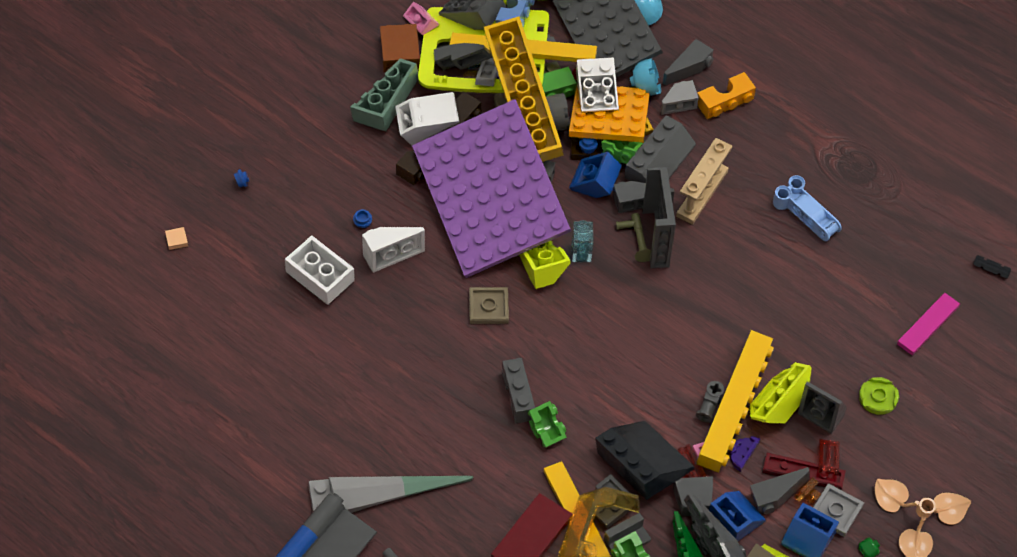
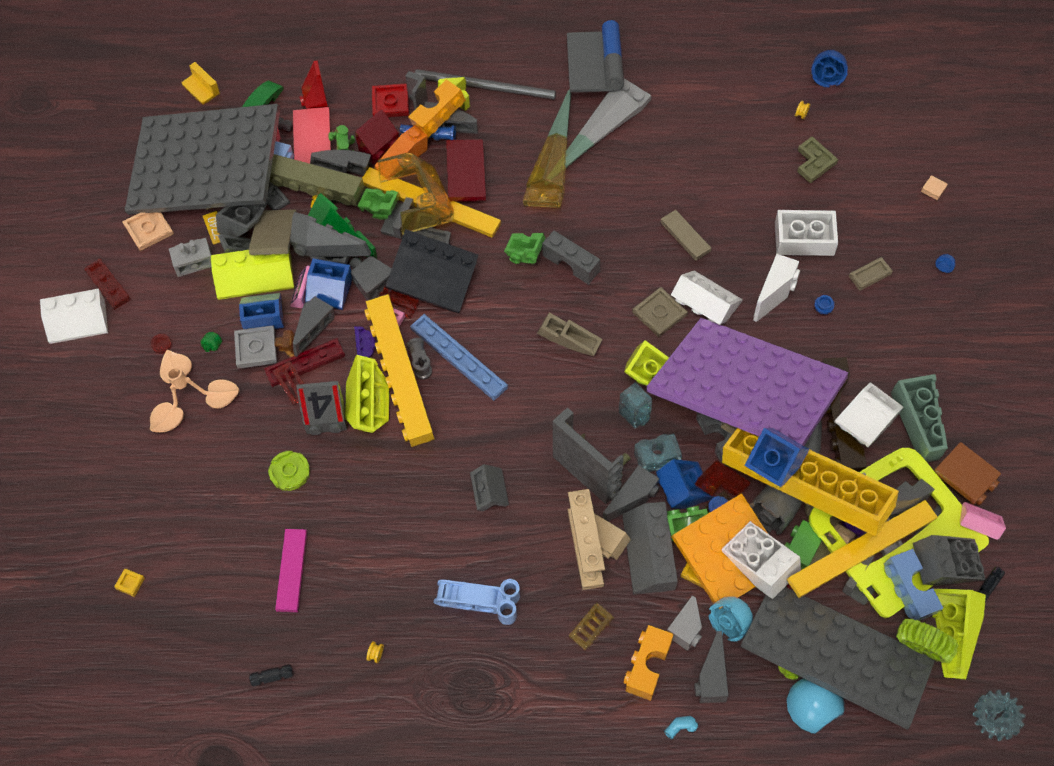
camera: 145 degrees right, 5 degrees up
(136, 386) = (829, 68): none -> blue cylinder
(200, 372) = (802, 110): none -> yellow bush
(237, 321) = (818, 162): none -> olive plate
(301, 216) = (870, 273): none -> dark tan tile
(406, 347) = (685, 235): none -> dark tan tile
(444, 284) = (705, 297): none -> white slope
(471, 473) = (547, 179): none -> clear yellow plate
(538, 102) = (776, 456): none -> blue slope
(572, 160) = (721, 476): none -> clear red plate
(578, 336) = (569, 335): none -> dark tan slope
(594, 207) = (650, 461): none -> clear light blue brick
(676, 386) = (459, 357): none -> medium blue tile
(678, 176) = (611, 538): none -> tan slope
(736, 55) = (679, 723): none -> medium azure arm
(738, 273) = (489, 487): none -> dark grey panel
(741, 148) = (585, 621): none -> clear yellow slope
(760, 533) = (298, 297): none -> bright pink slope
(908, 227) = (375, 652): none -> yellow bush

